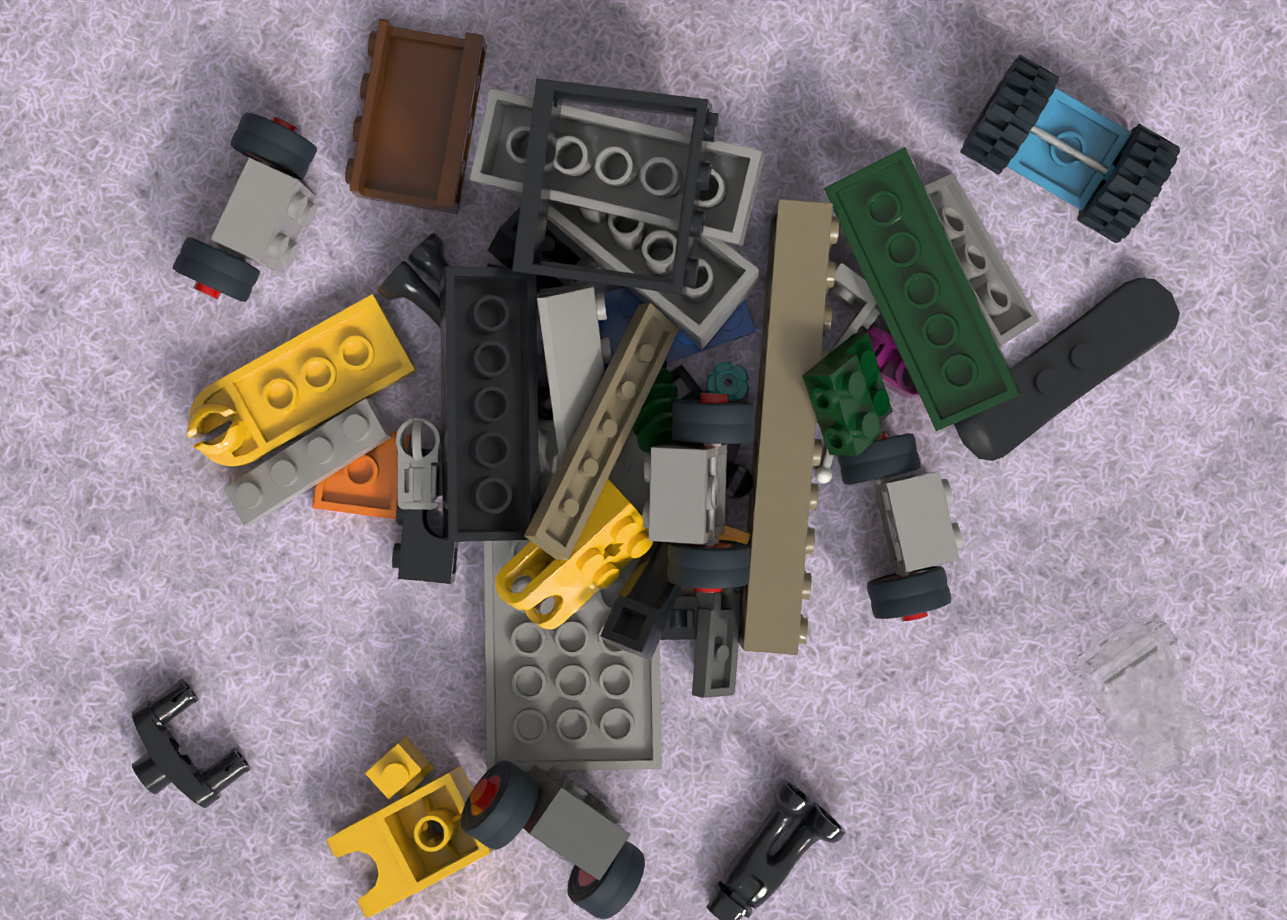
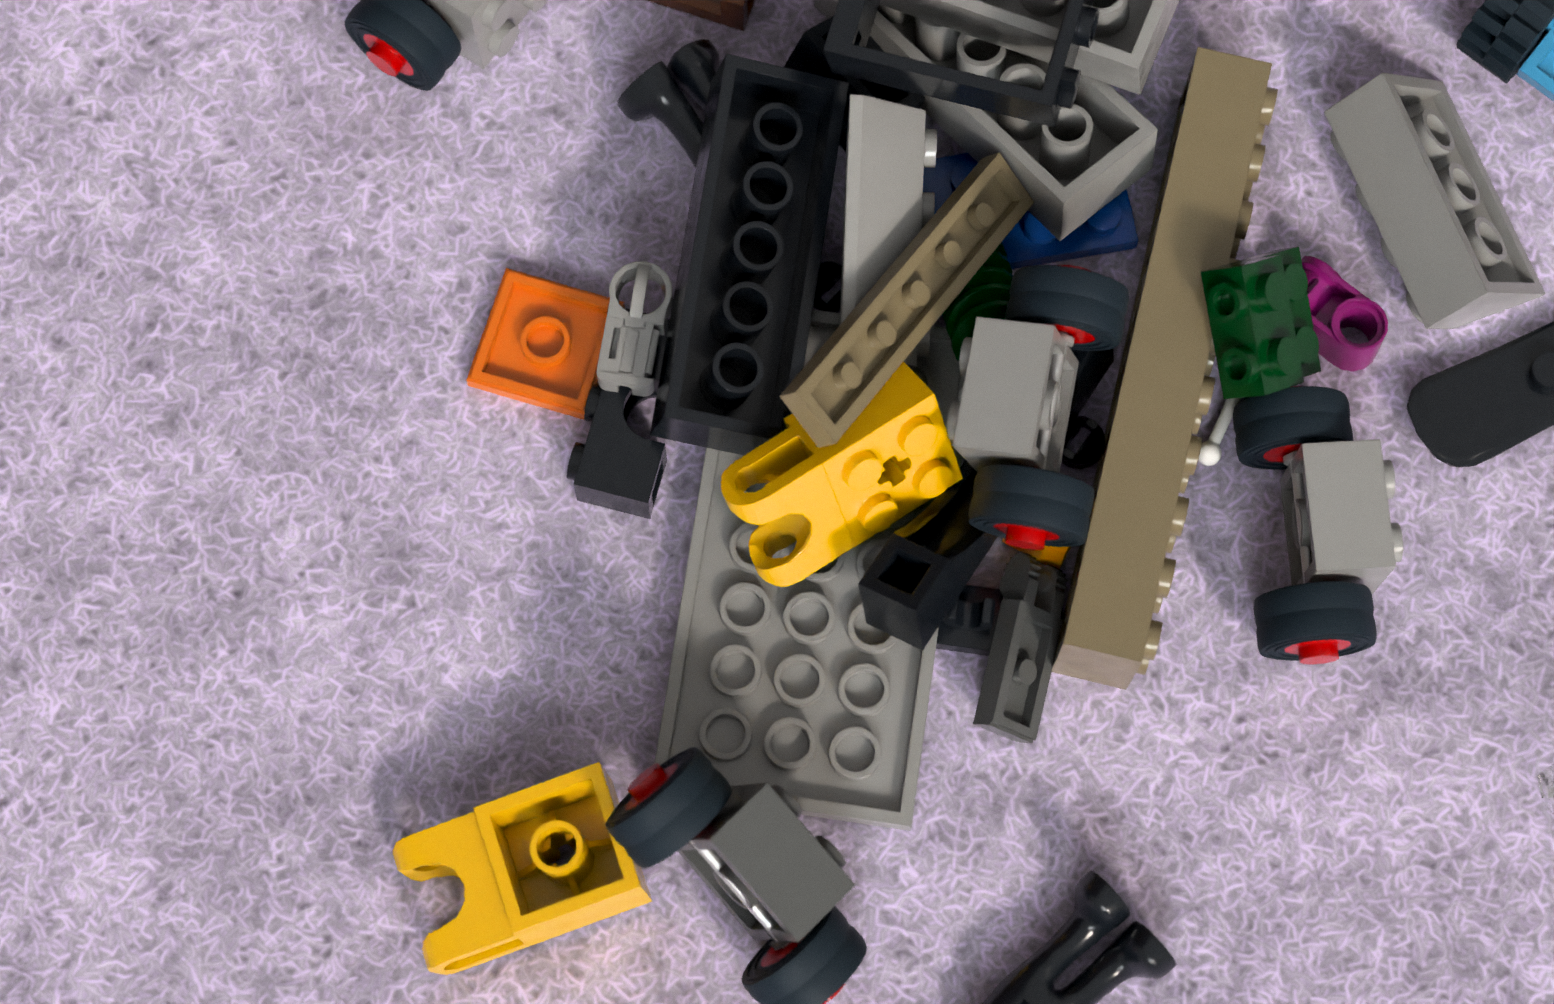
camera: 10 degrees right, 15 degrees down
(164, 762) = (182, 700): black connector -> none
(299, 385) = (481, 213): yellow plate -> none
(308, 462) = (473, 314): light grey plate -> none
(400, 769) = (520, 756): yellow brick -> none
(852, 289) = (1287, 204): light grey bracket -> none
(922, 289) = (1384, 202): dark green plate -> none

